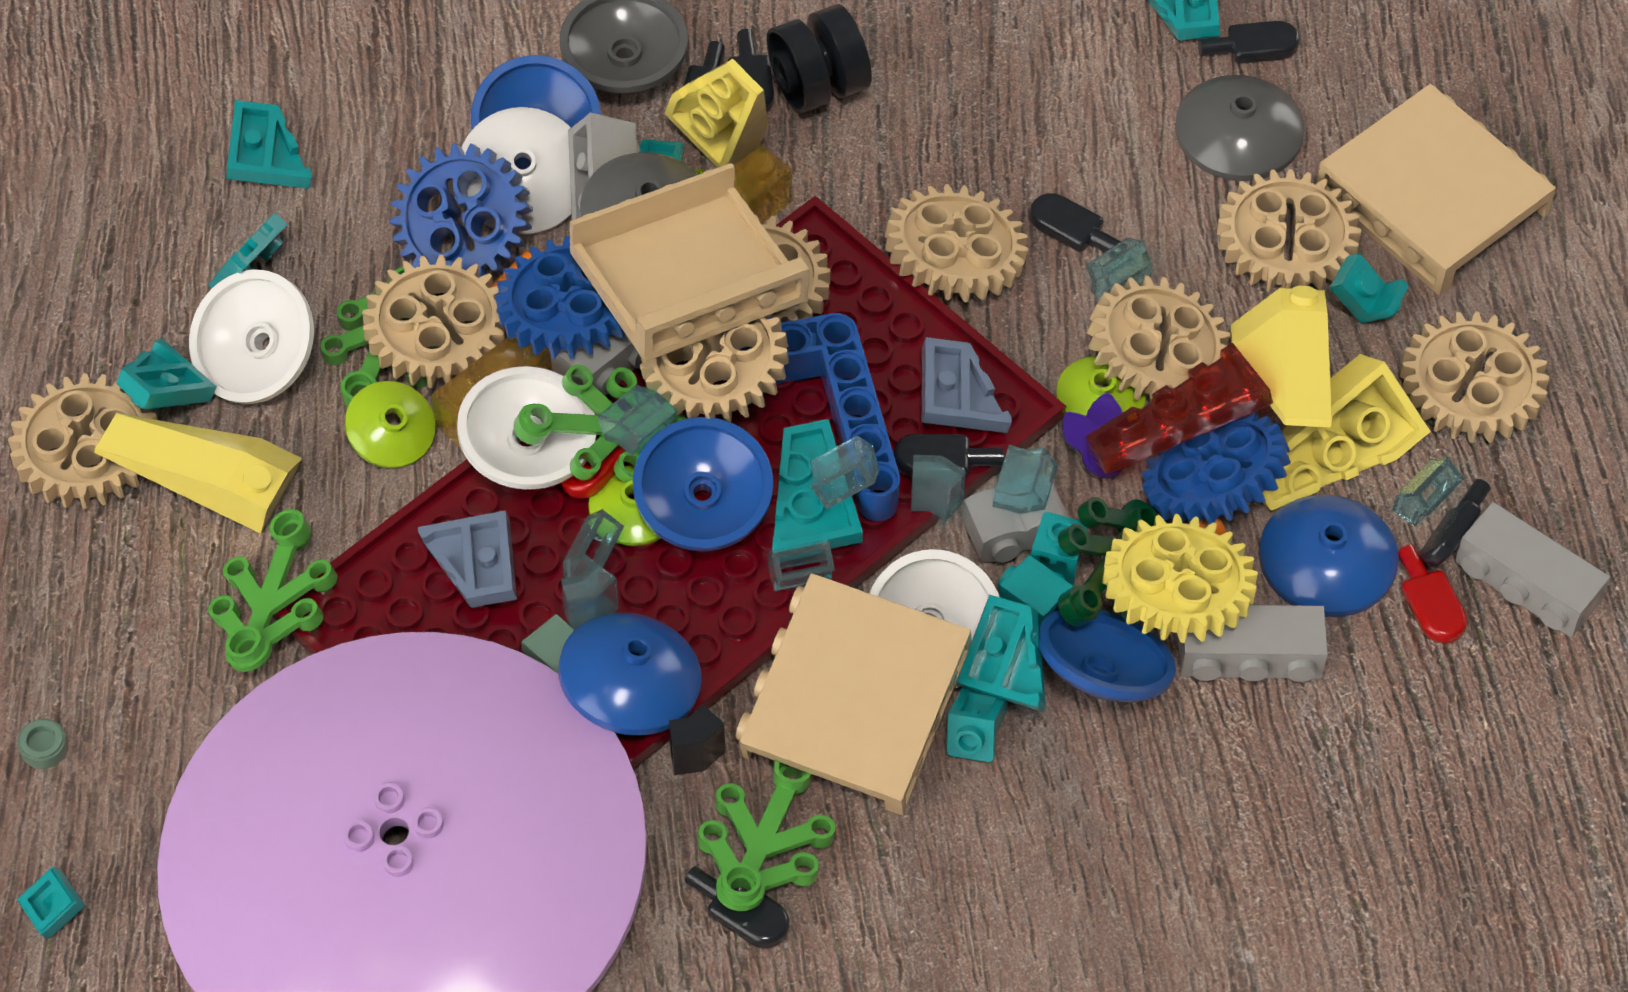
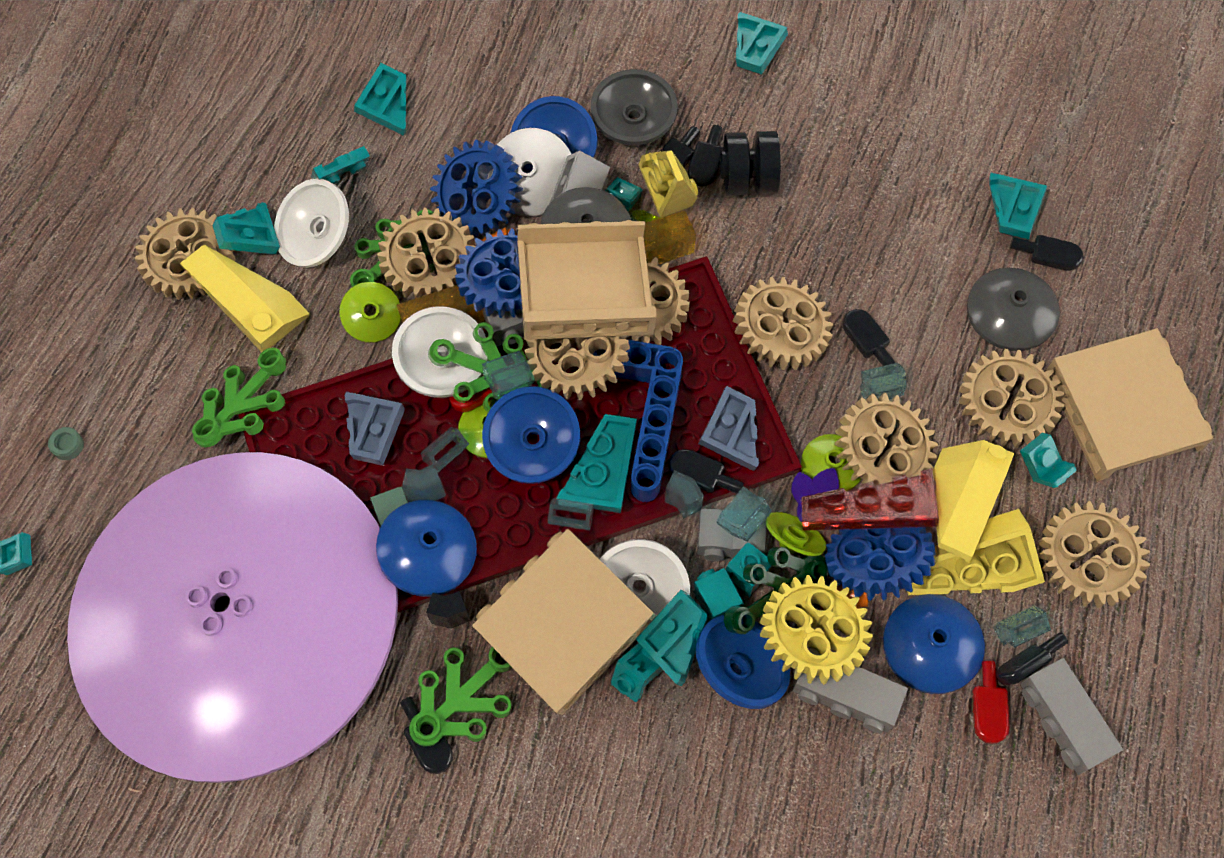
camera: 25 degrees right, 10 degrees up
(844, 471) = (623, 464): clear light blue piece -> none
(1086, 485) = (790, 534): none -> lime dish

